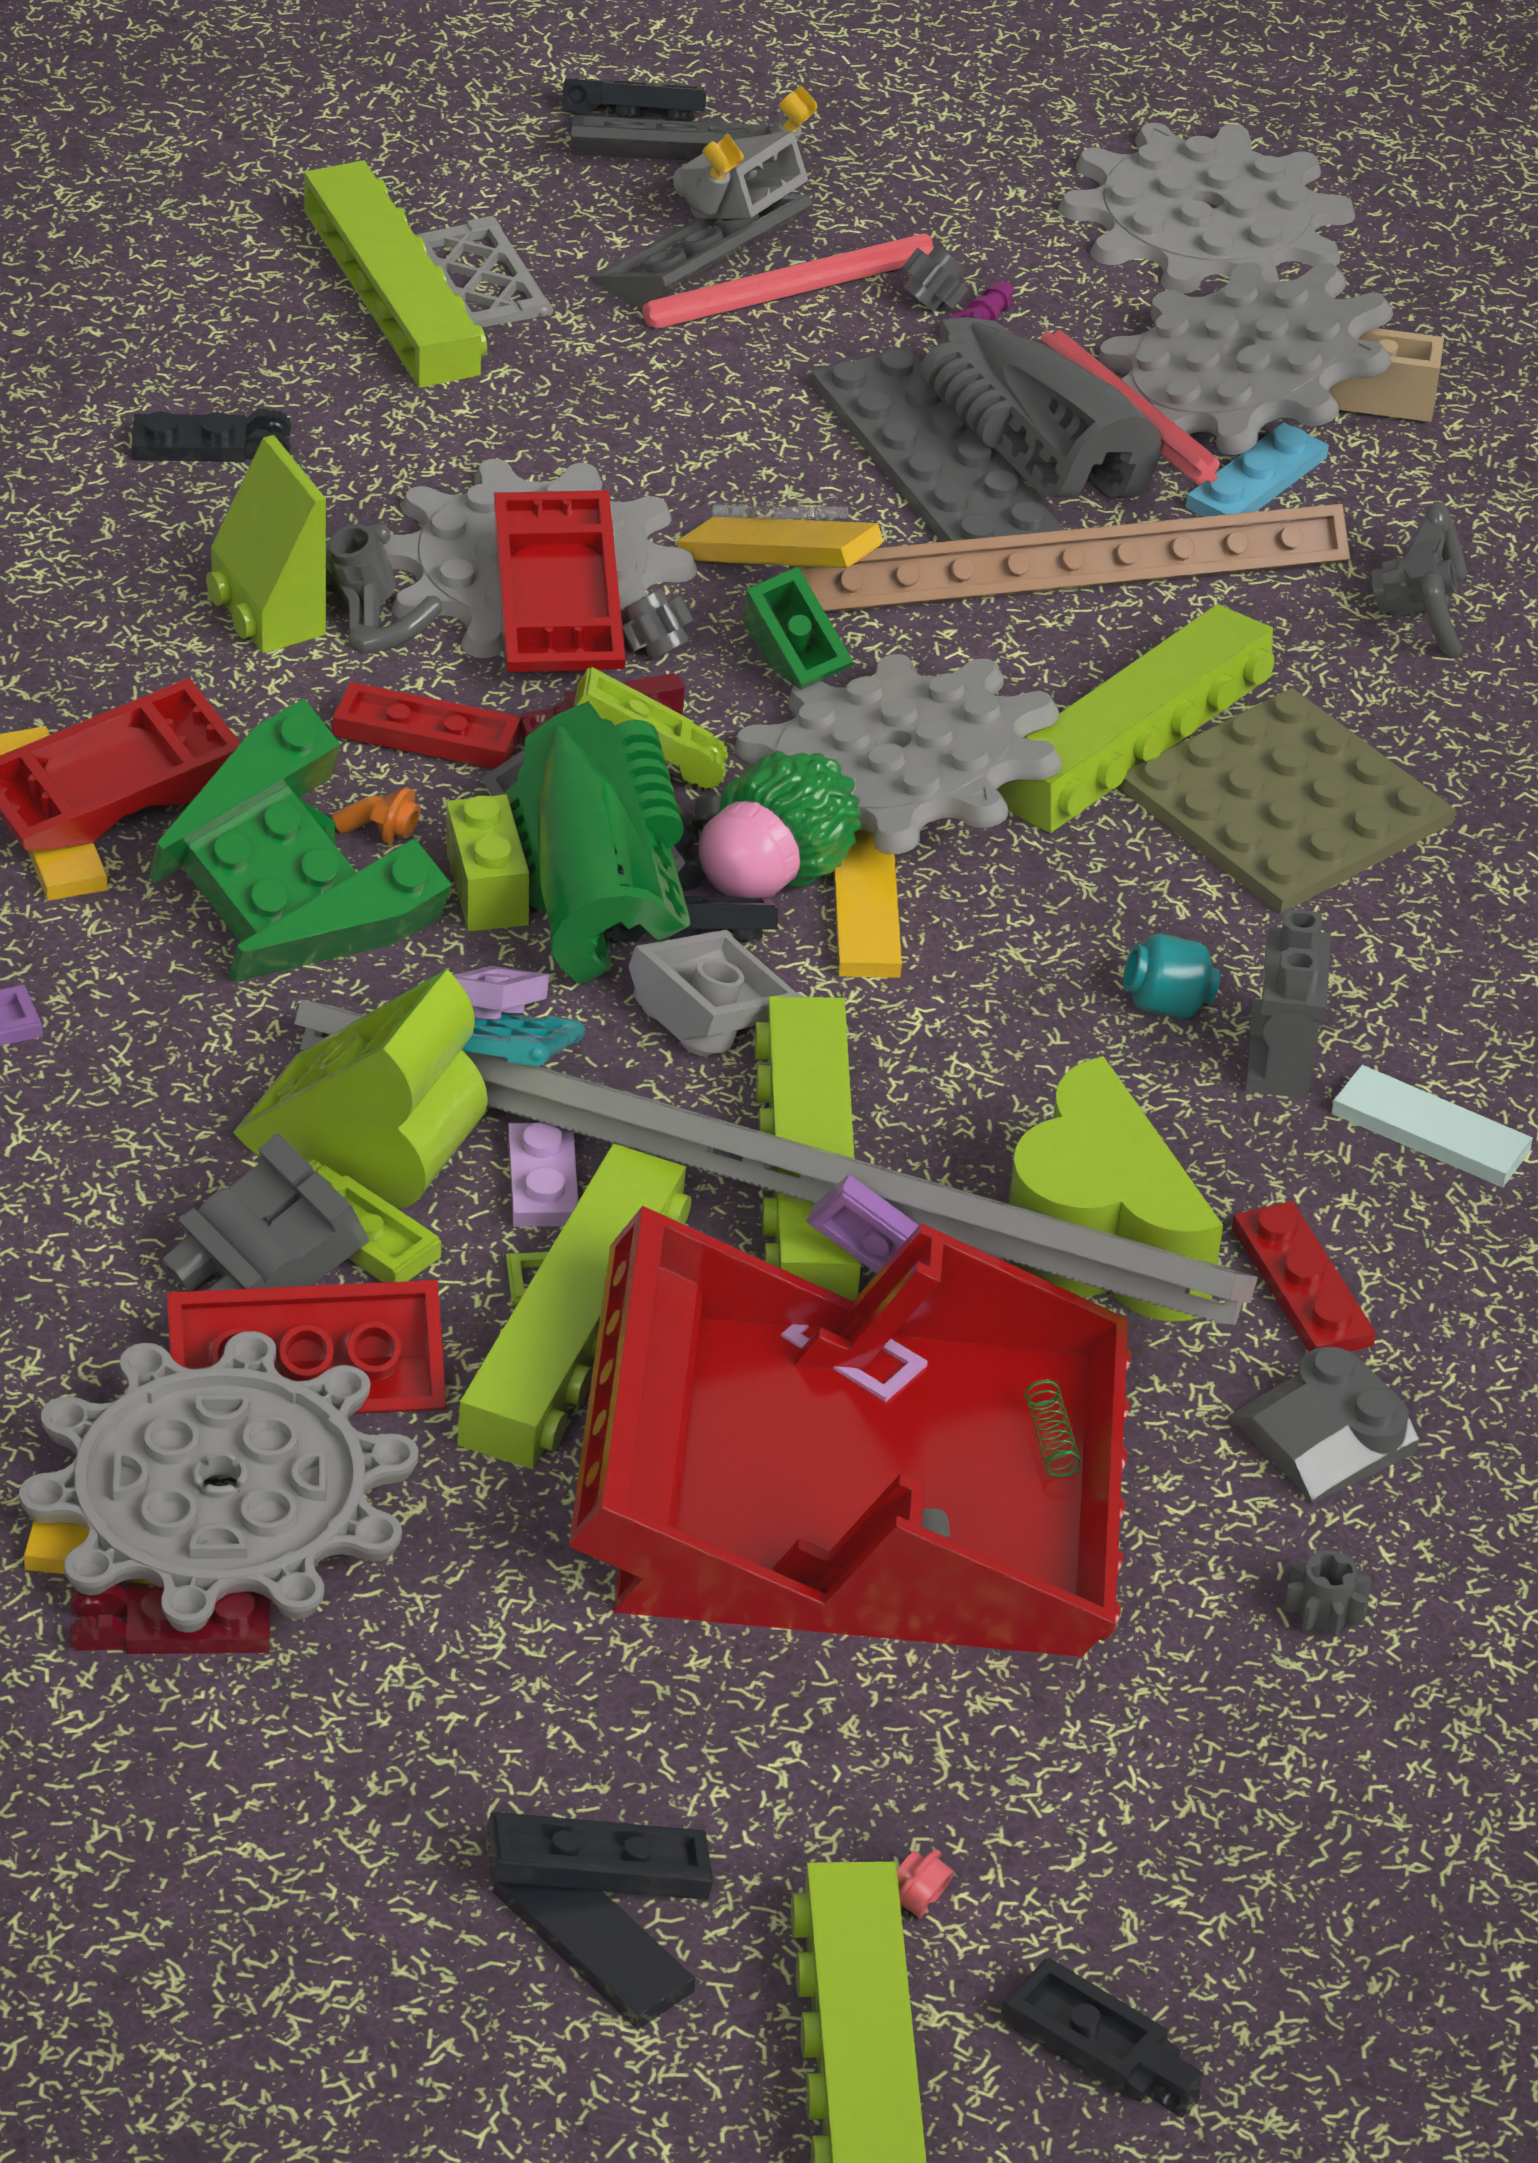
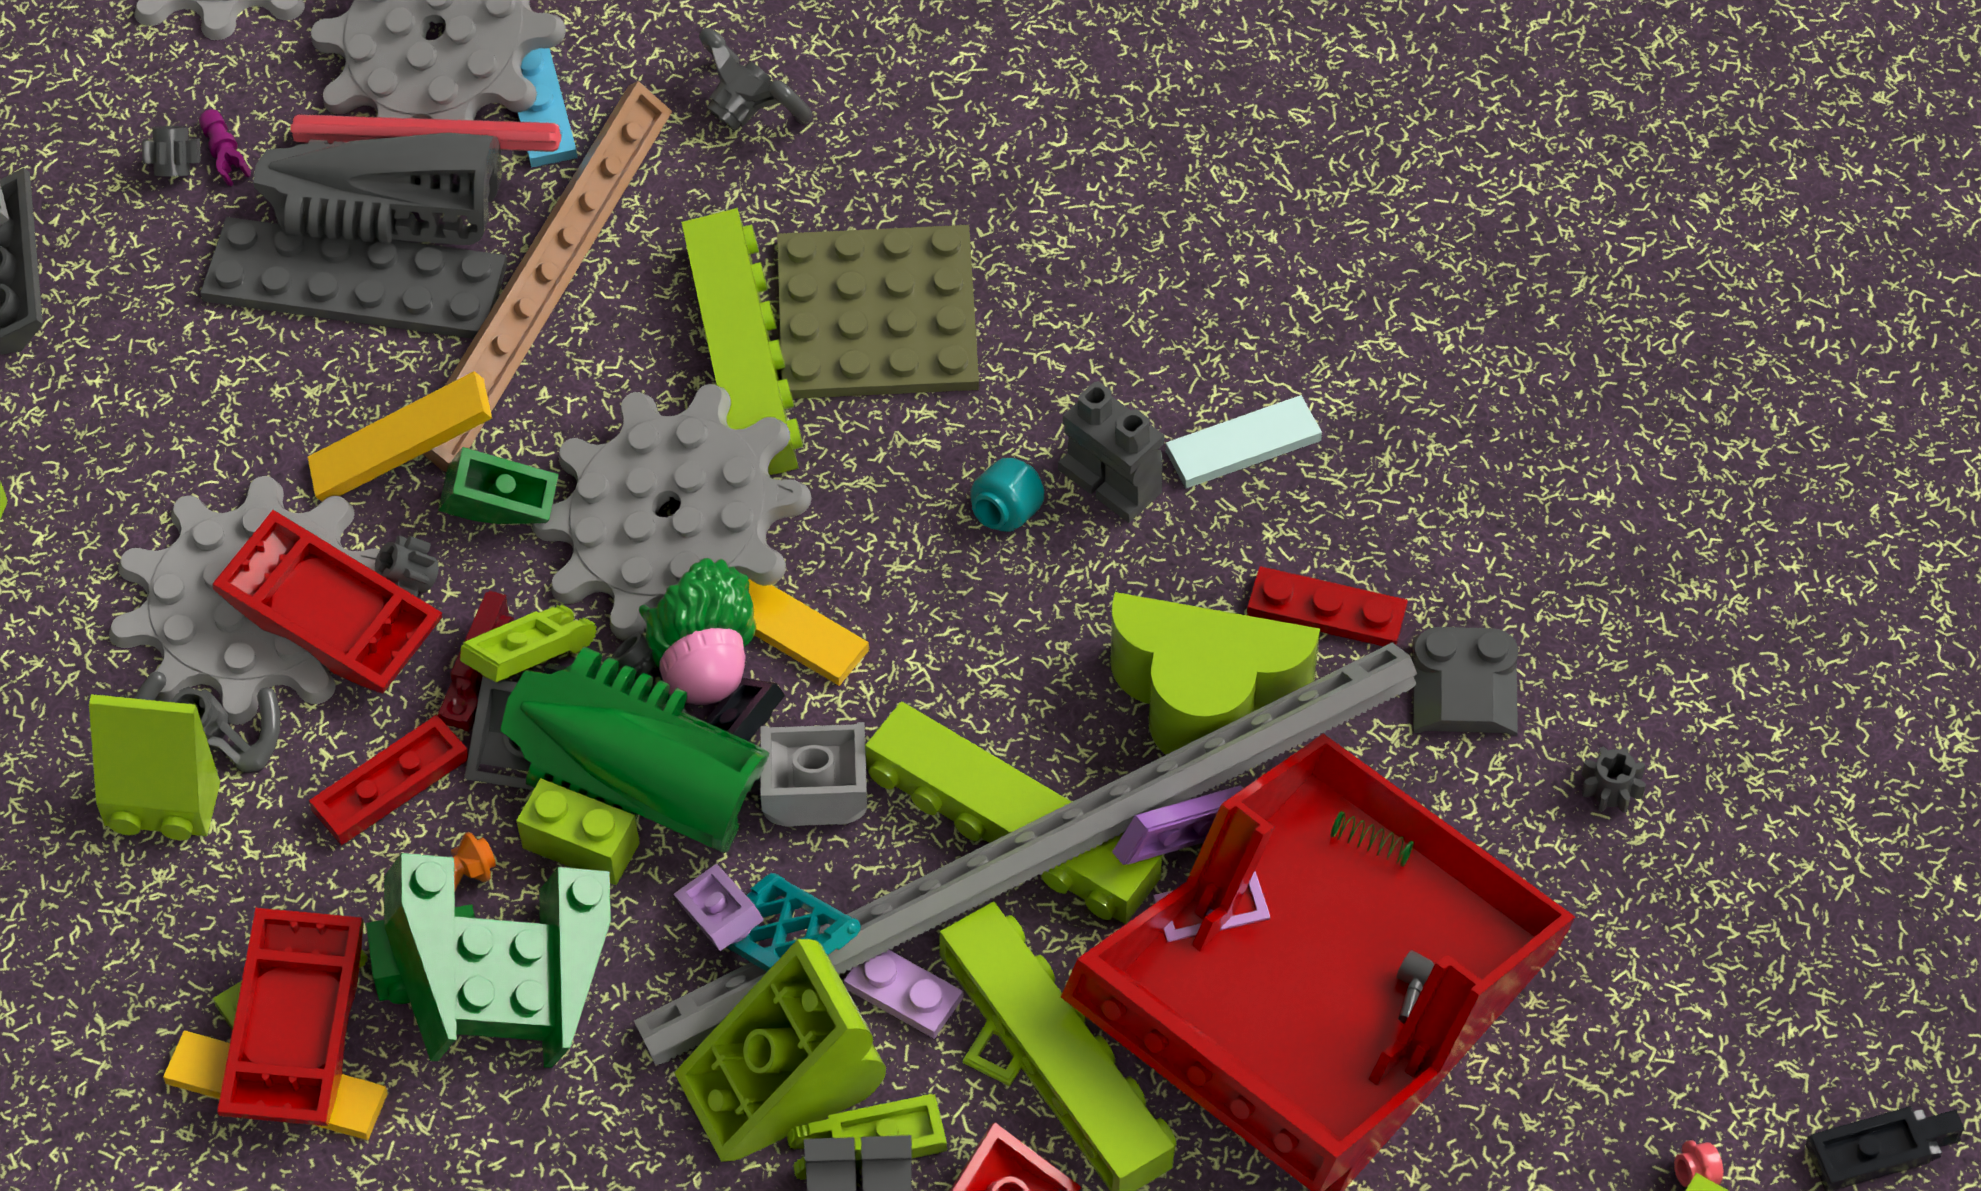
camera: 50 degrees left, 15 degrees up
(780, 511) = (355, 414): clear piece -> none
(783, 282) = (81, 241): coral axle -> none

